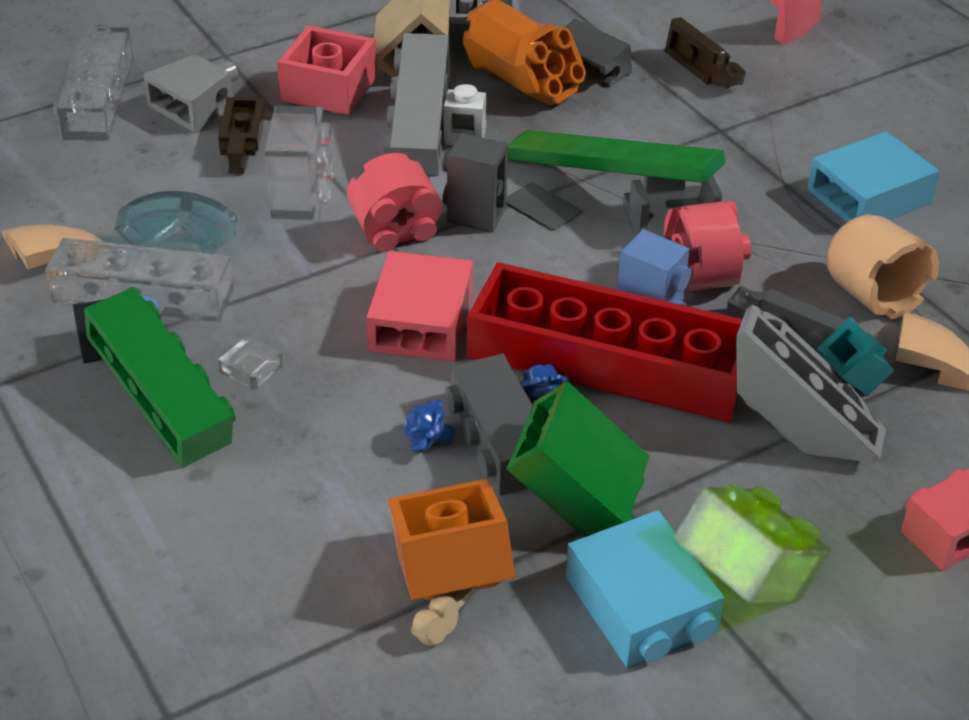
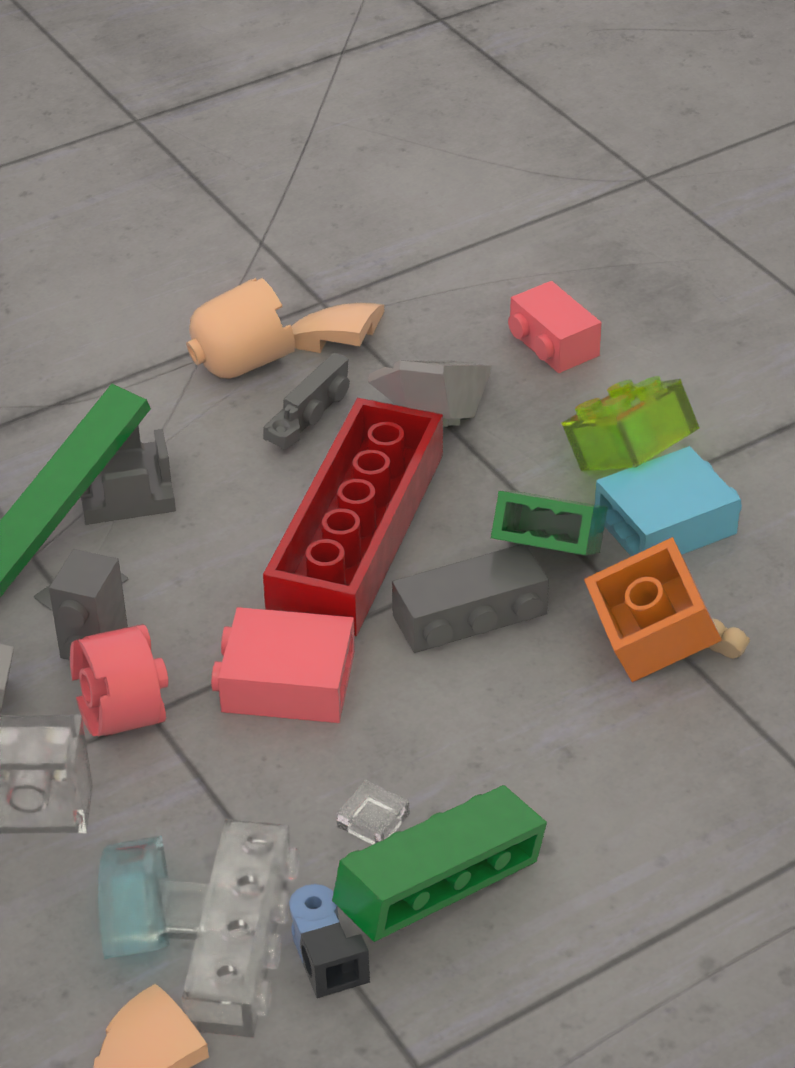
camera: 90 degrees left, 0 degrees up
(427, 426) = (478, 651): blue plant -> none
(541, 380) = (409, 562): blue plant -> none
(654, 268) = (276, 473): medium blue brick -> none
(713, 241) = (215, 438): coral brick -> none
(856, 356) = (372, 353): teal brick -> none
(873, 178) = (82, 333): medium azure brick -> none

